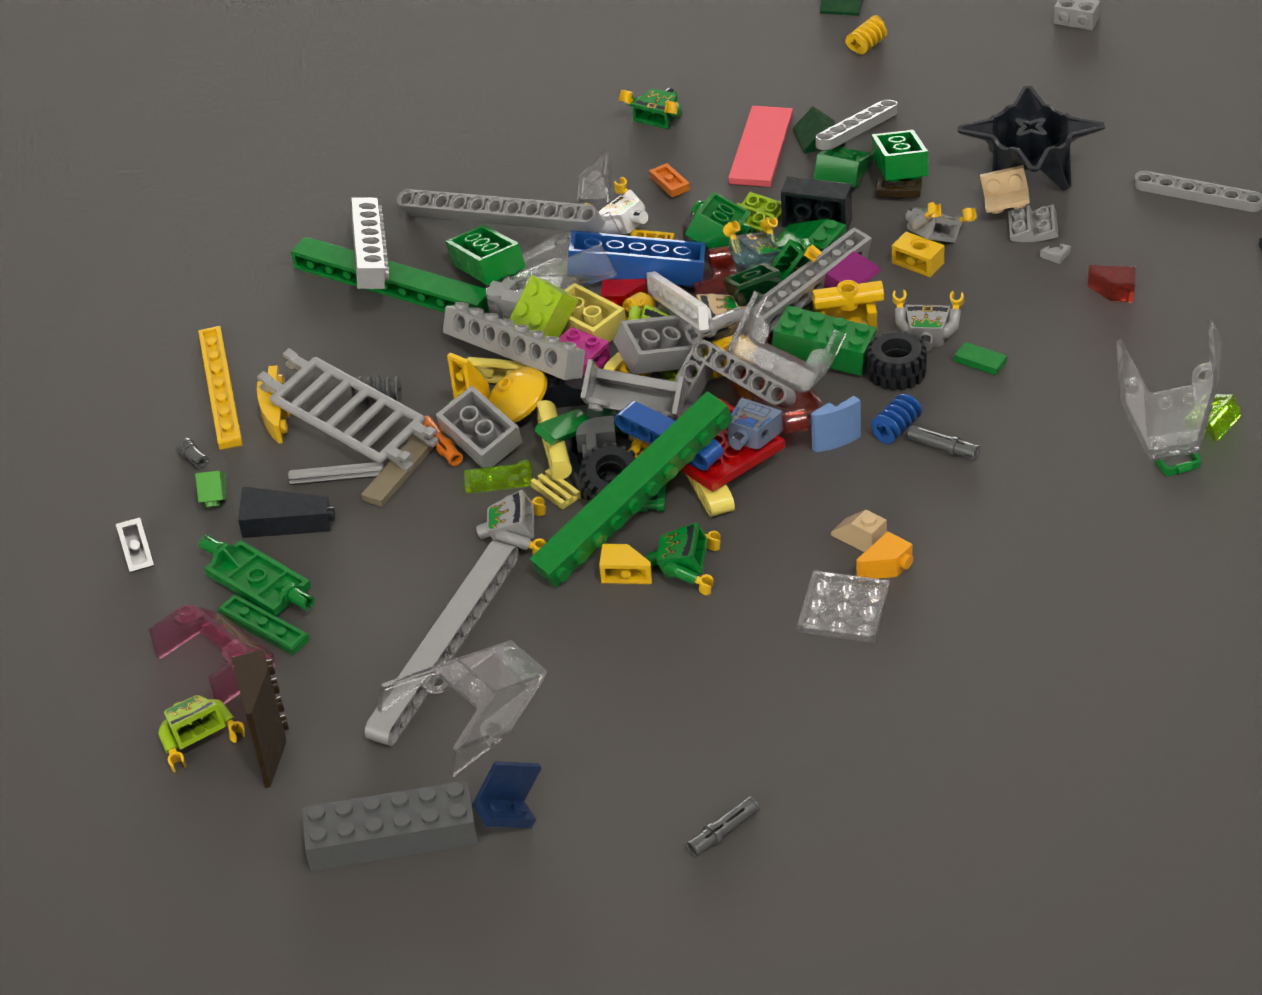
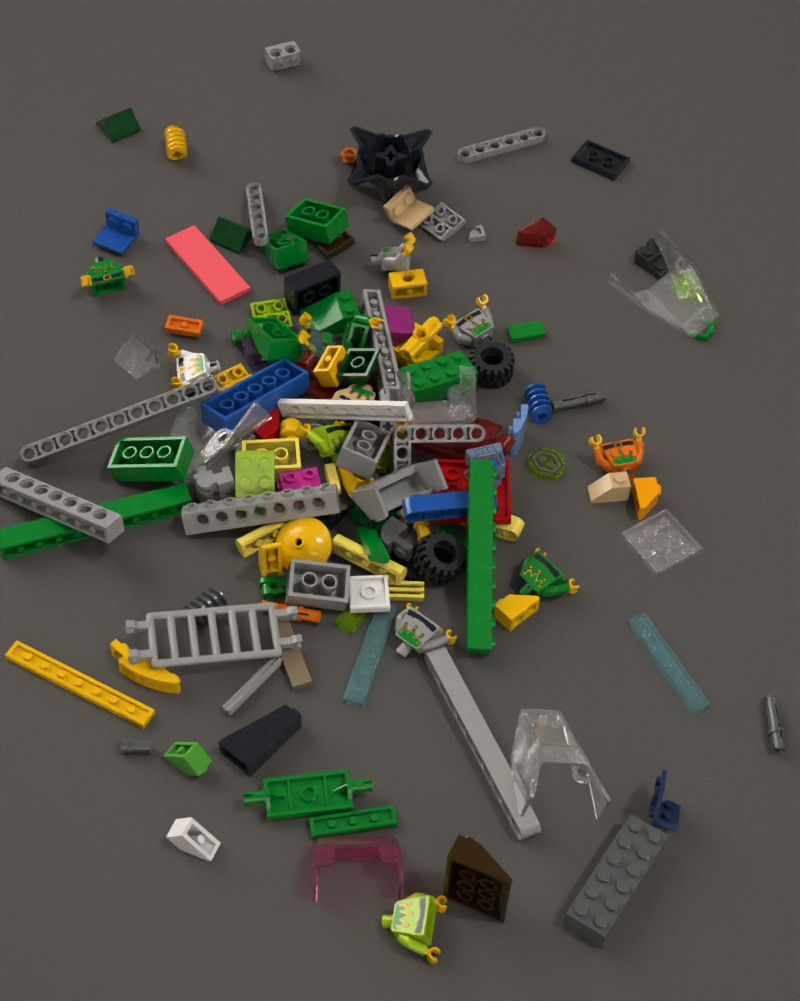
camera: 55 degrees left, 10 degrees up
(449, 517) = (369, 657): none -> clear light blue tile
(514, 465) = (369, 594): none -> white tile
(700, 707) = (668, 663): none -> clear light blue tile
(718, 82) = (118, 232): none -> blue bracket
(723, 268) = (329, 366): none -> yellow brick
(834, 474) = (546, 463): none -> clear neon green tile
(909, 510) = (619, 455): none -> orange torso
(1232, 370) = (651, 259): none -> pearl dark grey plate

